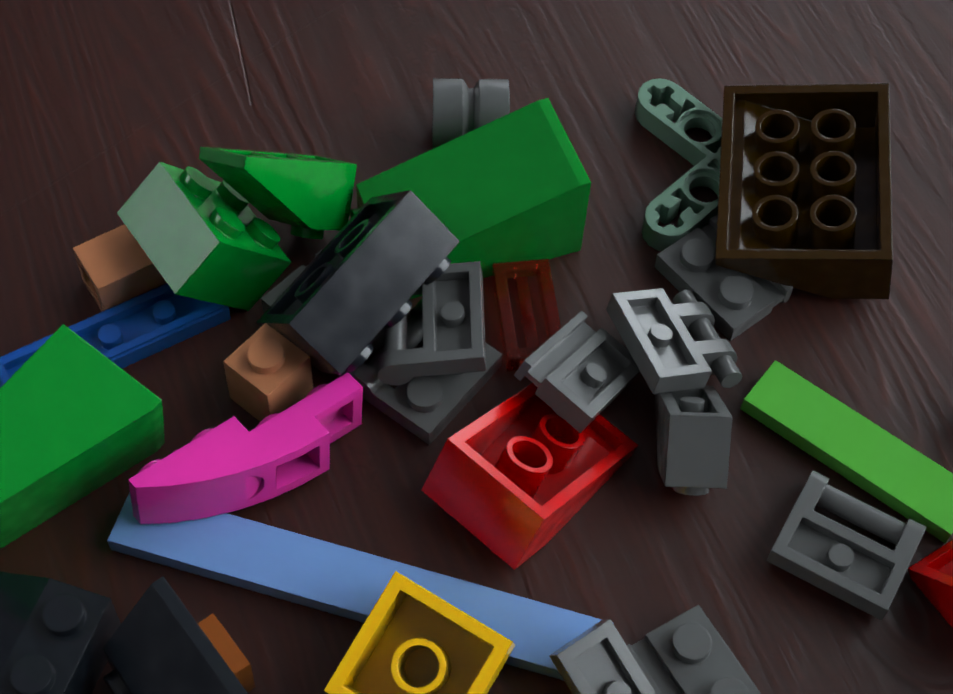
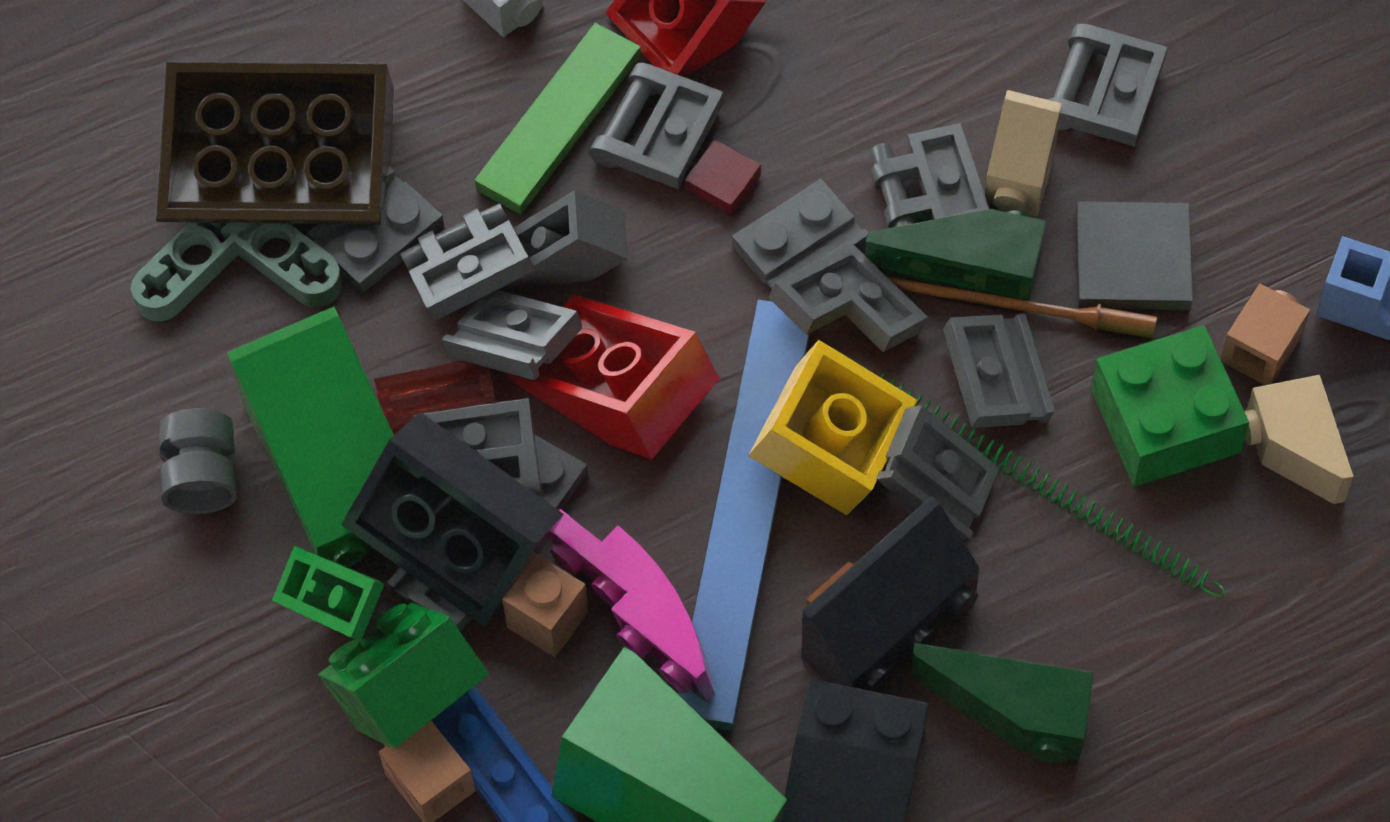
camera: 90 degrees left, 5 degrees up
(781, 608) = (722, 177): none -> dark red tile

